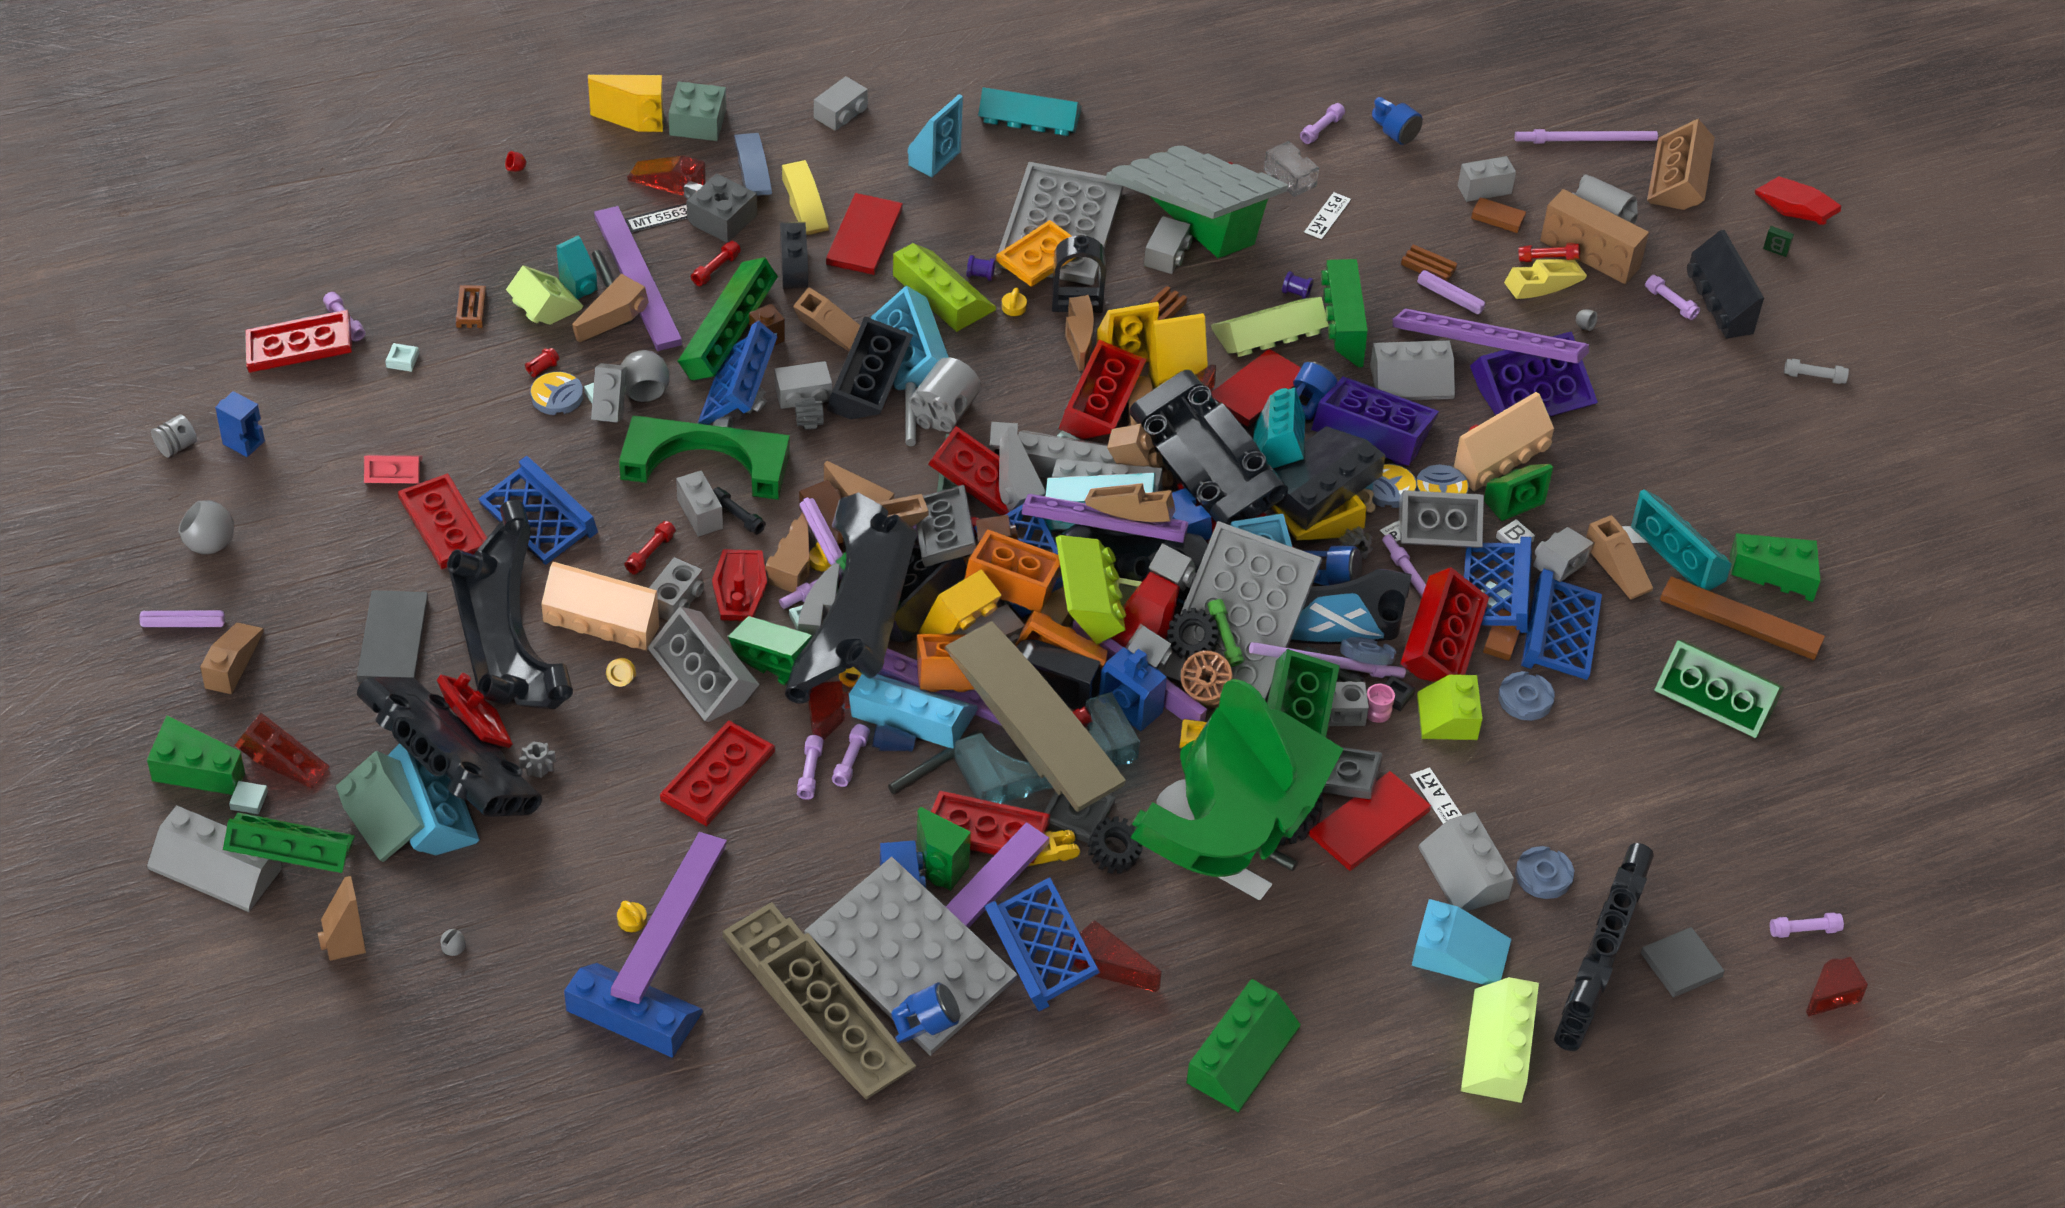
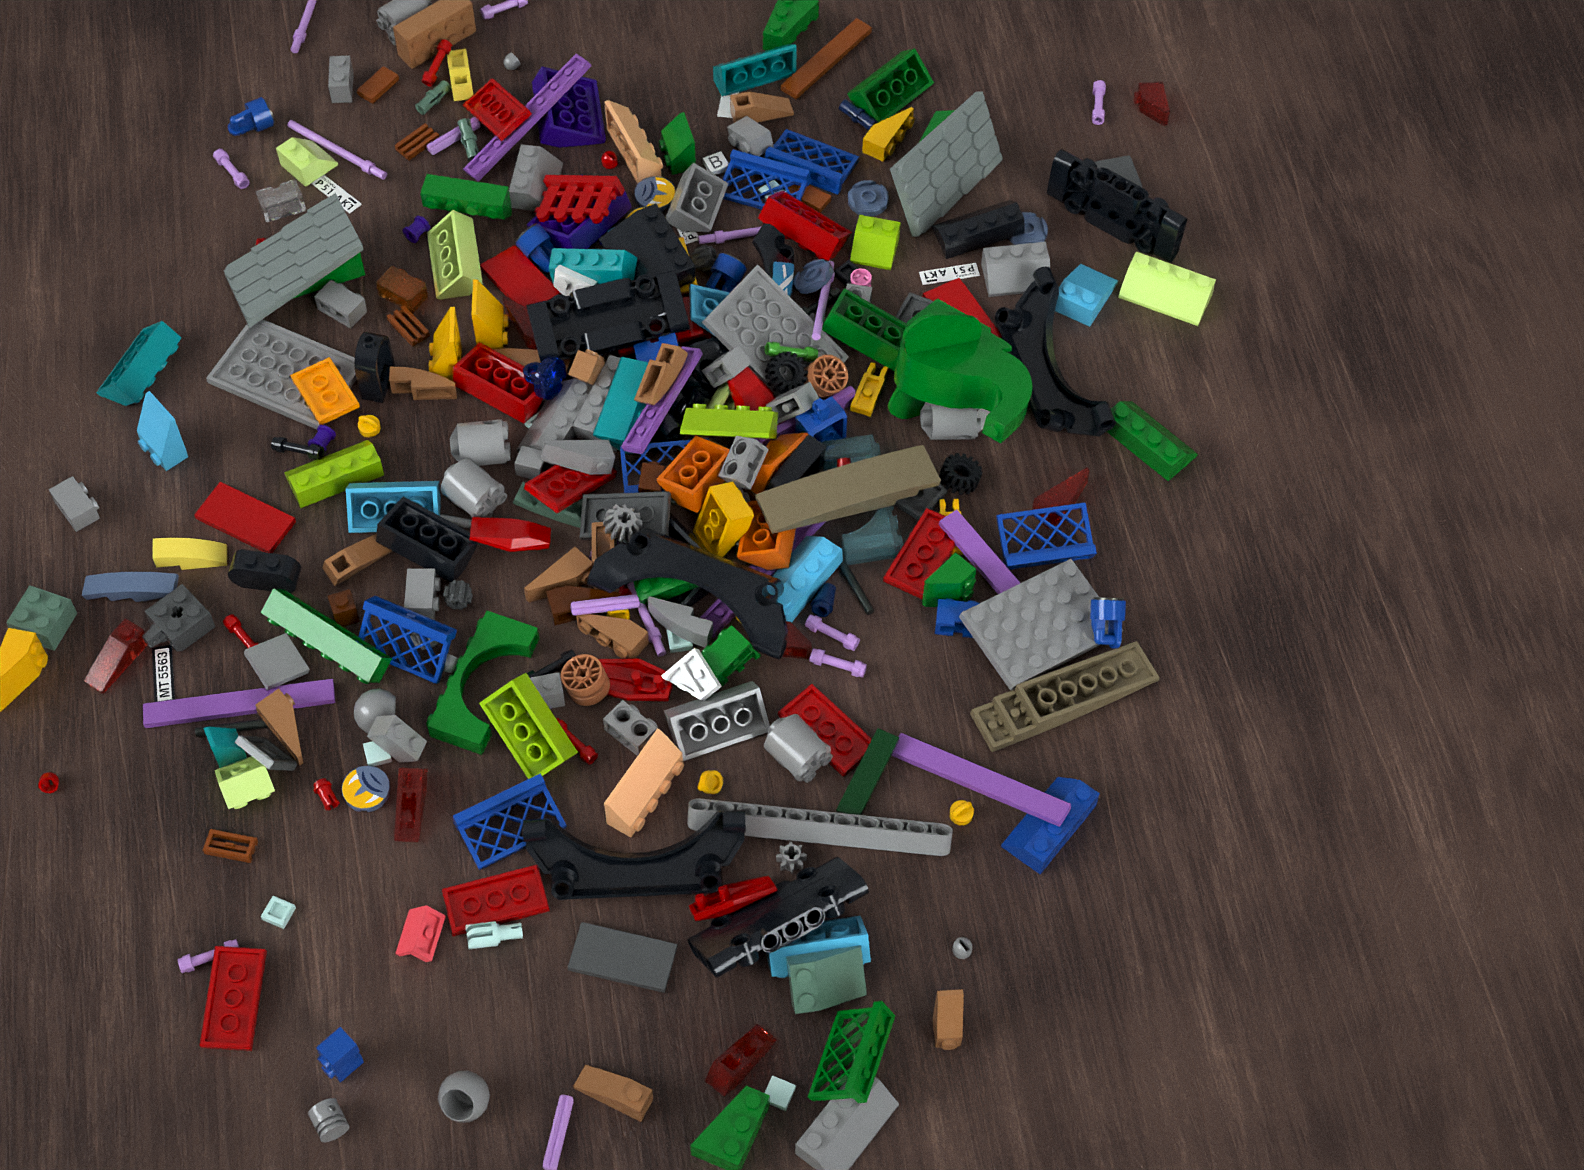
camera: 75 degrees left, 10 degrees up
(400, 521) = (491, 933): none -> light aqua arm
(547, 425) = (410, 803): none -> clear red slope
(570, 297) = (266, 753): none -> dark grey tile
(580, 786) = (830, 827): none -> light grey beam
(646, 494) = (528, 727): none -> lime slope
(660, 814) = (868, 773): none -> dark green tile
(674, 735) = (797, 747): none -> light grey cylinder
(688, 289) = (276, 661): none -> light grey tile
(723, 536) = (585, 680): none -> nougat wheel
(748, 616) = (693, 675): none -> white wing
(897, 438) = (510, 534): none -> red piece
(921, 511) = (622, 522): none -> light grey gear
(960, 260) = (313, 451): none -> black bar
(1010, 389) = (481, 442): none -> light grey cylinder
(1030, 598) = (743, 462): none -> light grey brick
(1104, 415) = (547, 376): none -> clear blue tile
(1207, 290) = (402, 289): none -> clear orange brick
(1257, 415) = (569, 280): none -> white wing
(1318, 907) = (1031, 337): none -> black panel
(1358, 175) = (305, 160): none -> yellowish green slope
(1374, 228) = (366, 165): none -> lavender bar
(1381, 401) = (580, 187): none -> red fence
(1447, 301) = (468, 138): none -> sand green pin
(1494, 310) = (497, 109): none -> red tile
(1501, 263) = (433, 97): none -> sand green pin
(1517, 811) = (979, 228): none -> black slope
(1589, 743) = (946, 162): none -> light grey piece
(1636, 695) = (884, 136): none -> yellow slope
(1656, 662) = (857, 114): none -> dark blue pin

